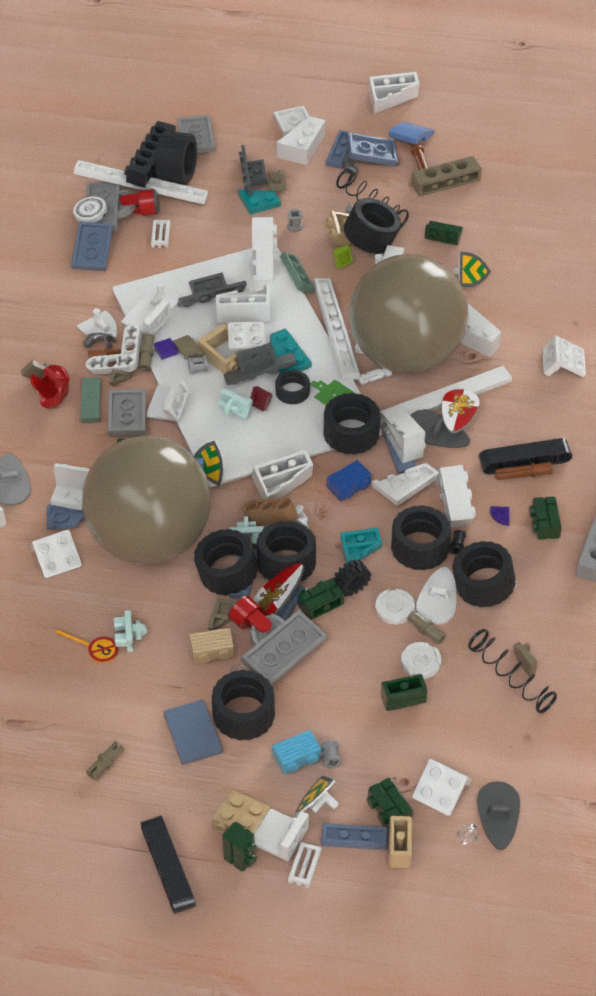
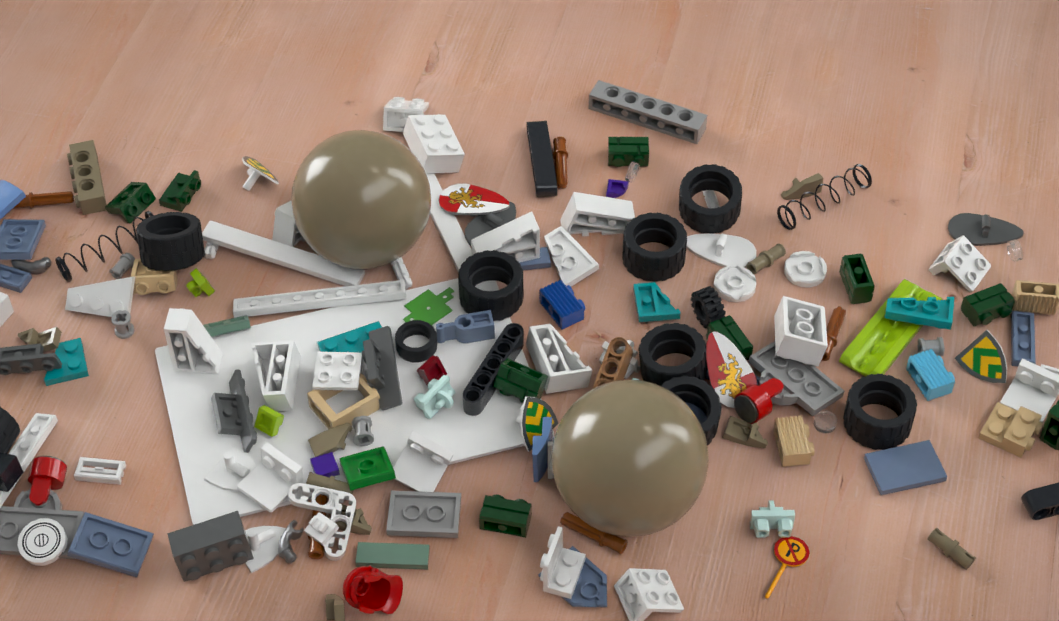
camera: 85 degrees left, 0 degrees up
(84, 291) = (210, 546): none -> dark grey brick
(103, 349) = (321, 528): none -> white tile
(160, 369) = (367, 468): none -> green tile
(204, 309) = (268, 420): none -> lime tile
(250, 451) = (519, 380): none -> dark green brick
(265, 435) = (481, 385): none -> black beam
(309, 418) = (467, 328): none -> sand blue piece
(316, 205) = (102, 297): none -> white wing
(327, 641) = (800, 331): none -> white brick
(339, 677) = (833, 329): none -> dark orange axle
(353, 725) = (884, 338): none -> lime plate
(365, 742) = (929, 313): none -> teal wing
(424, 205) = (131, 201): none -> dark green bracket
(520, 522) = (632, 172): none -> clear tile
(521, 376) = (433, 143): none -> white brick

